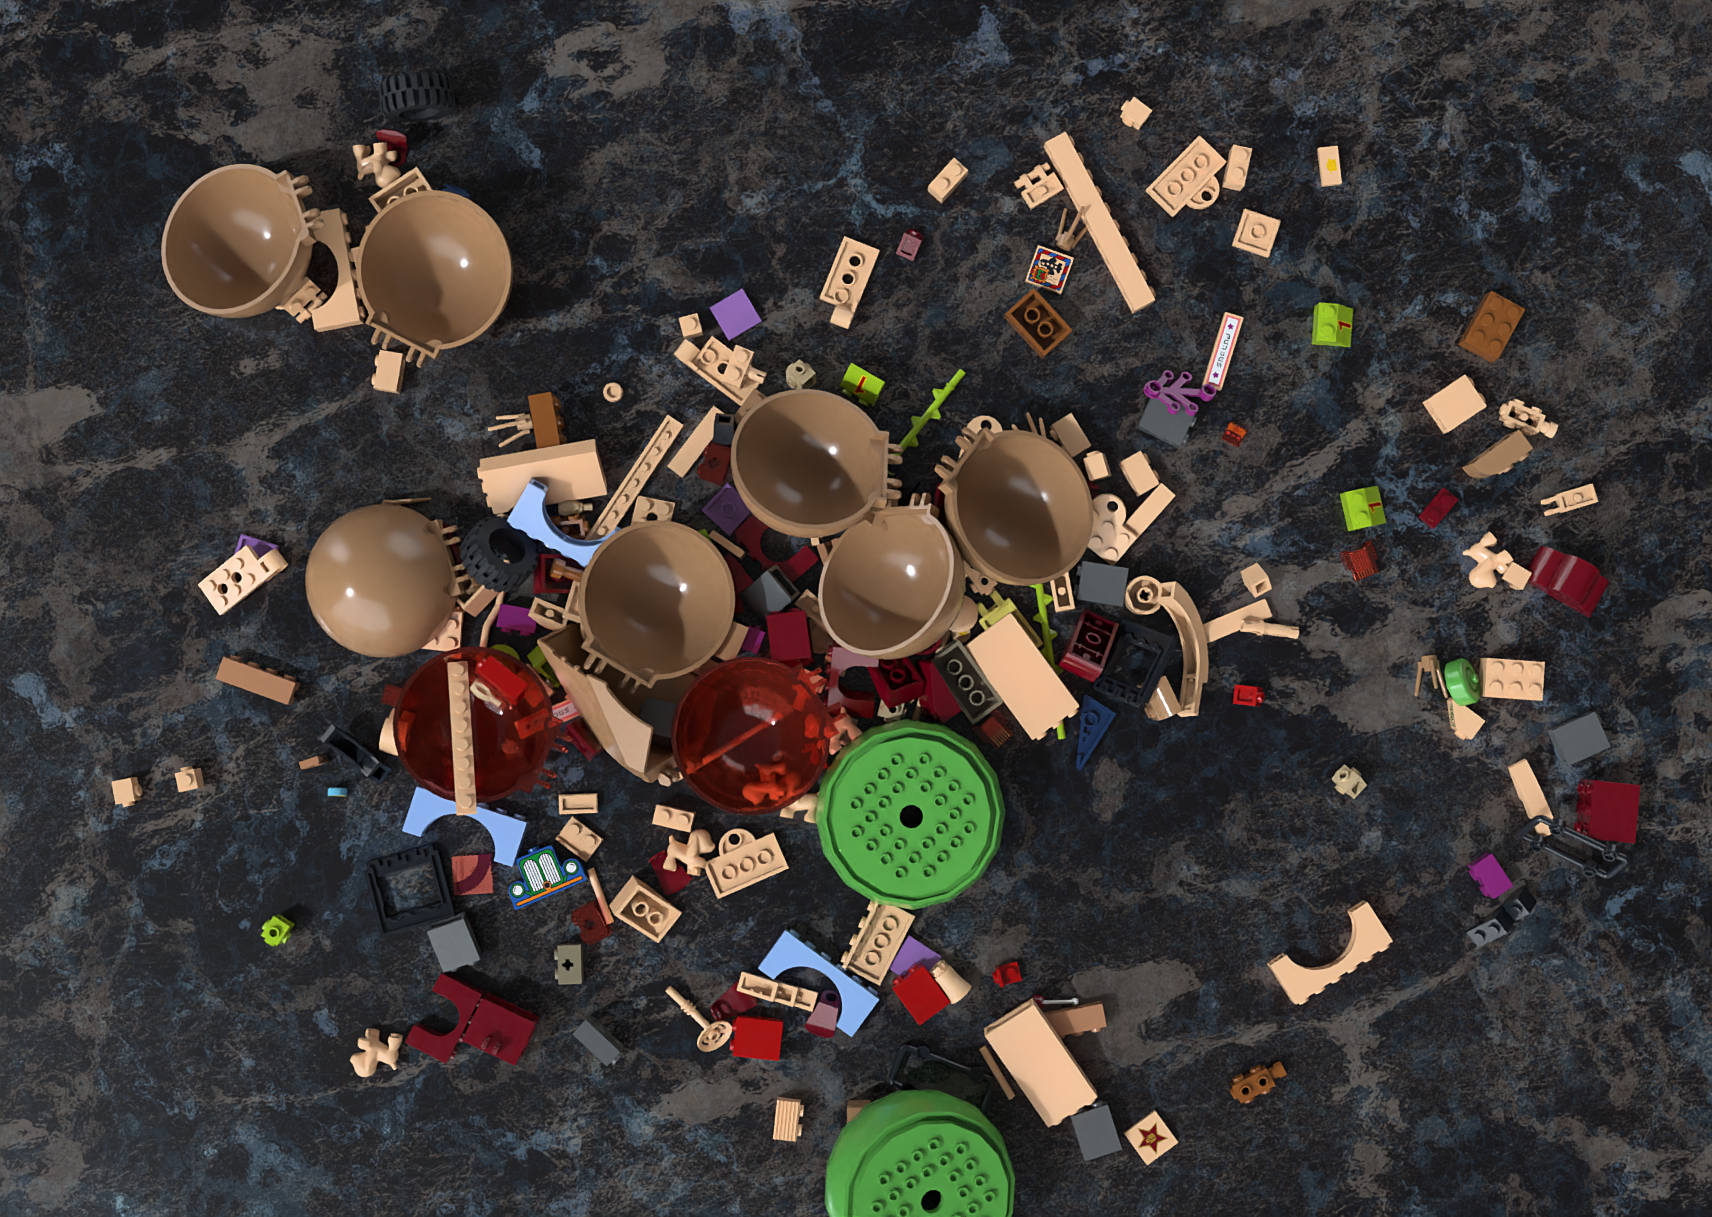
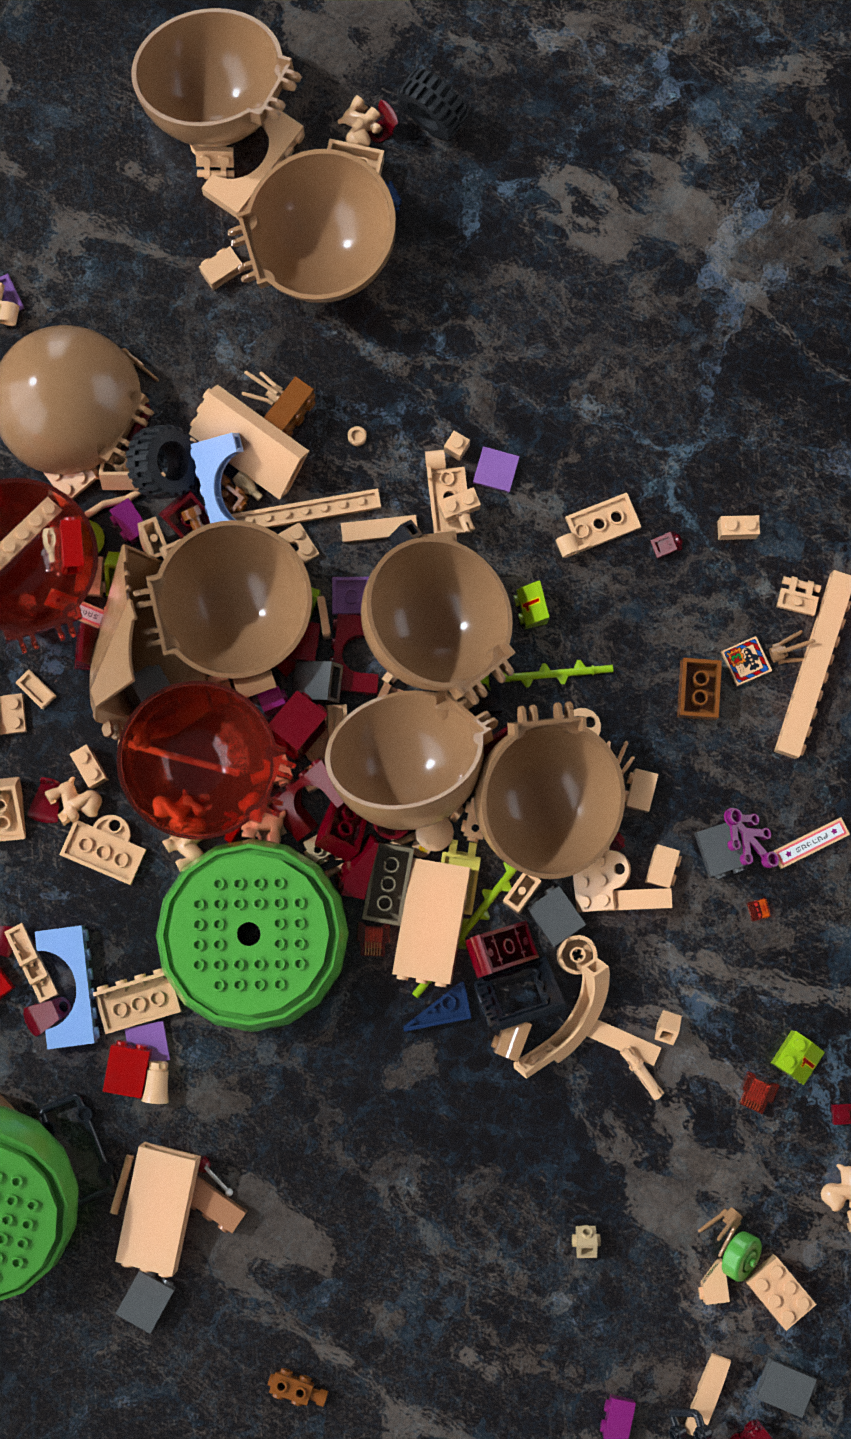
camera: 45 degrees right, 5 degrees down
(716, 475) = (363, 554): clear red brick -> none
(800, 375) = (496, 555): tan brick -> none
(1006, 974) = (202, 1121): red bracket -> none
(1096, 466) = (637, 830): light nougat brick -> none
(1150, 1137) = (180, 1348): light nougat tile -> none
(1248, 695) = (578, 1104): red bracket -> none
(1366, 939) = (481, 1370): light nougat arch -> none

